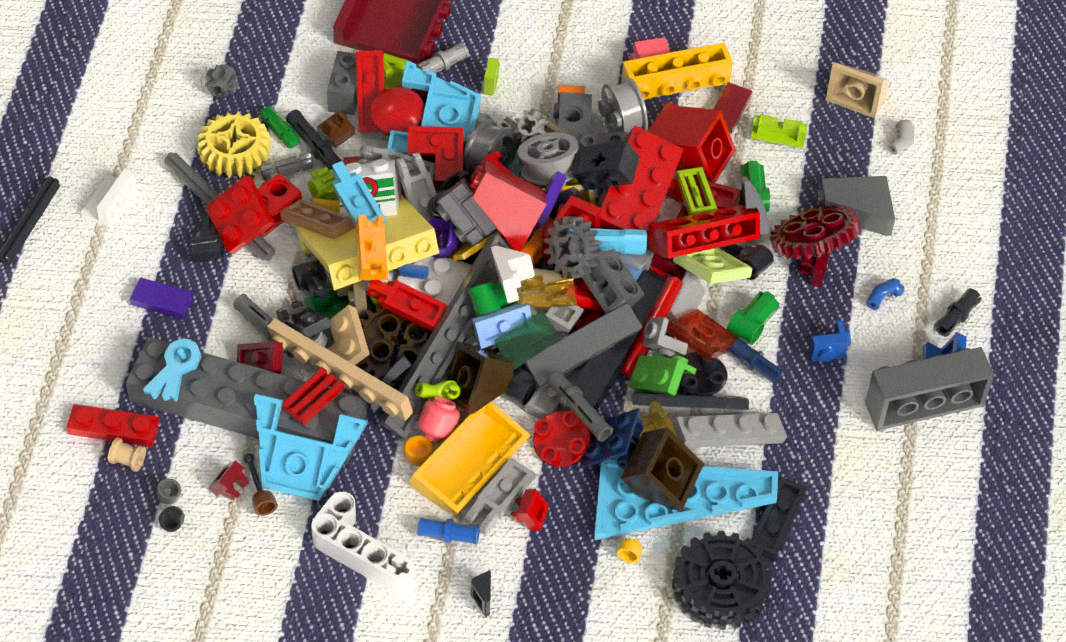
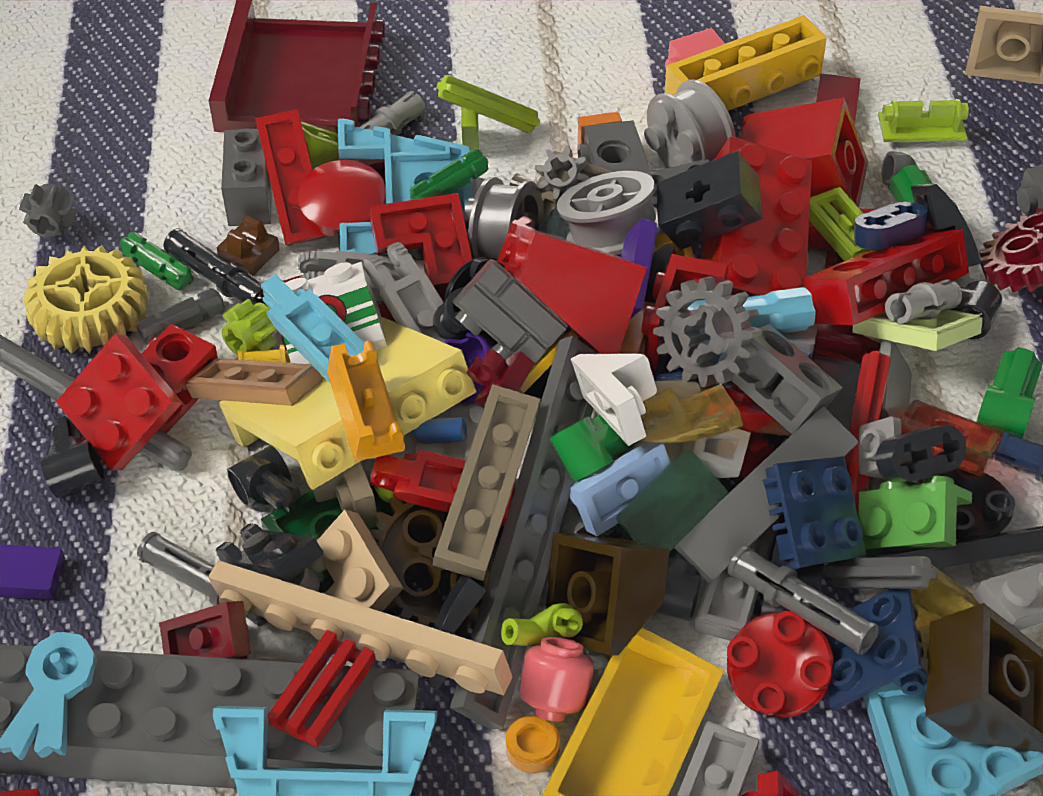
camera: 10 degrees left, 5 degrees down
(427, 305) = (486, 483): none -> dark tan plate
(452, 248) = (496, 370): none -> dark red tile
(463, 115) = (452, 176): none -> green axle
(505, 65) = (487, 104): none -> lime axle
(604, 360) = (816, 511): none -> dark blue hinge
(628, 401) = (882, 573): none -> dark grey axle
(673, 335) = (919, 445): none -> black beam
(717, 252) = (923, 301): none -> light grey pin
(718, 200) = (890, 225): none -> dark blue beam
(749, 155) = (893, 164): none -> dark grey hinge

